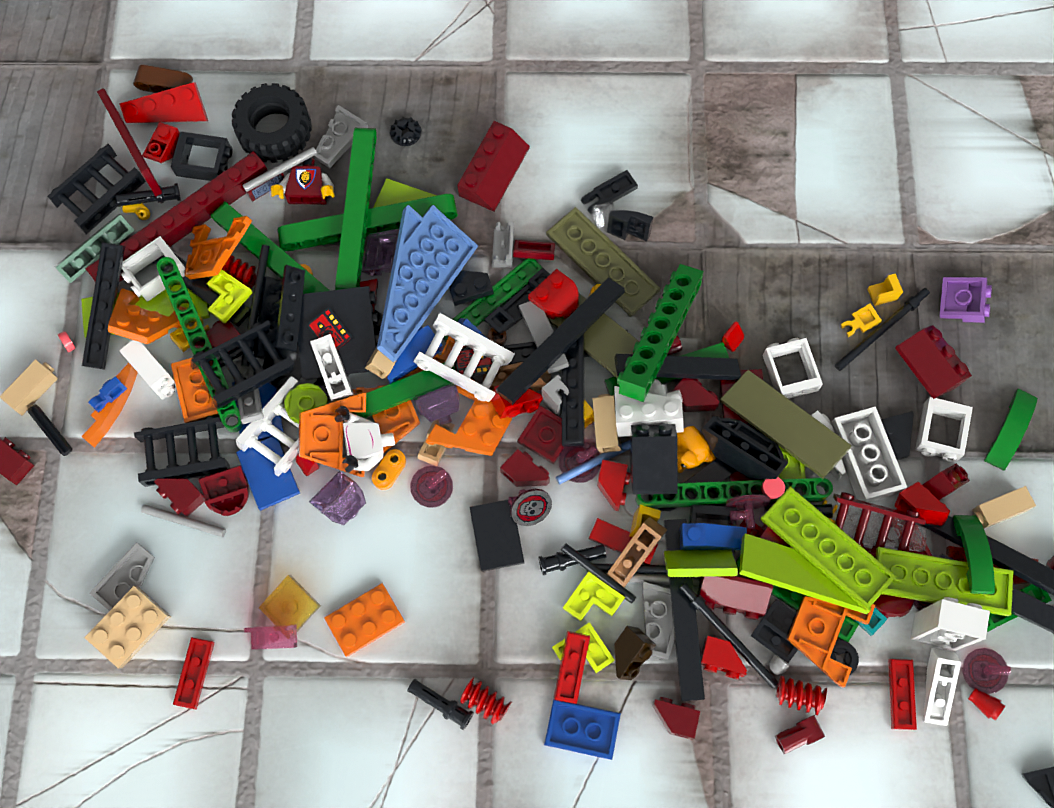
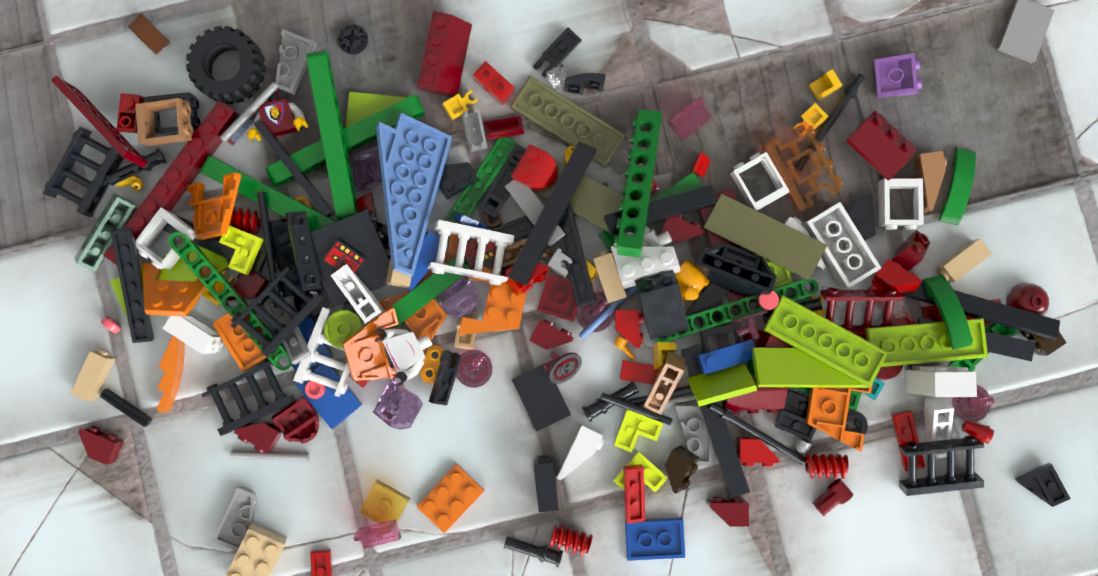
camera: 15 degrees left, 15 degrees up
(108, 393) = (167, 365): blue plate -> none
(159, 79) = (109, 47): reddish brown beam -> none
(171, 105) = (124, 71): red wing -> none
(175, 151) = (146, 121): none -> medium nougat window
(206, 79) = (148, 34): none -> reddish brown slope
(255, 461) = (315, 390): none -> coral tile
(307, 232) = (294, 168): none -> black tile
(397, 486) = (445, 378): none -> black hinge
(475, 626) = (545, 484): none -> black window
(491, 215) = (456, 105): none -> yellow plate
(527, 601) = (582, 448): none -> white slope
(536, 204) = (493, 83): none -> red brick
(599, 500) = (620, 343): none -> light orange hand
(732, 288) = (690, 119): none -> clear pink panel
(828, 369) = (790, 173): none -> clear orange fence
(943, 751) = (950, 481): none -> black fence
(985, 401) = (931, 169): none -> medium nougat slope

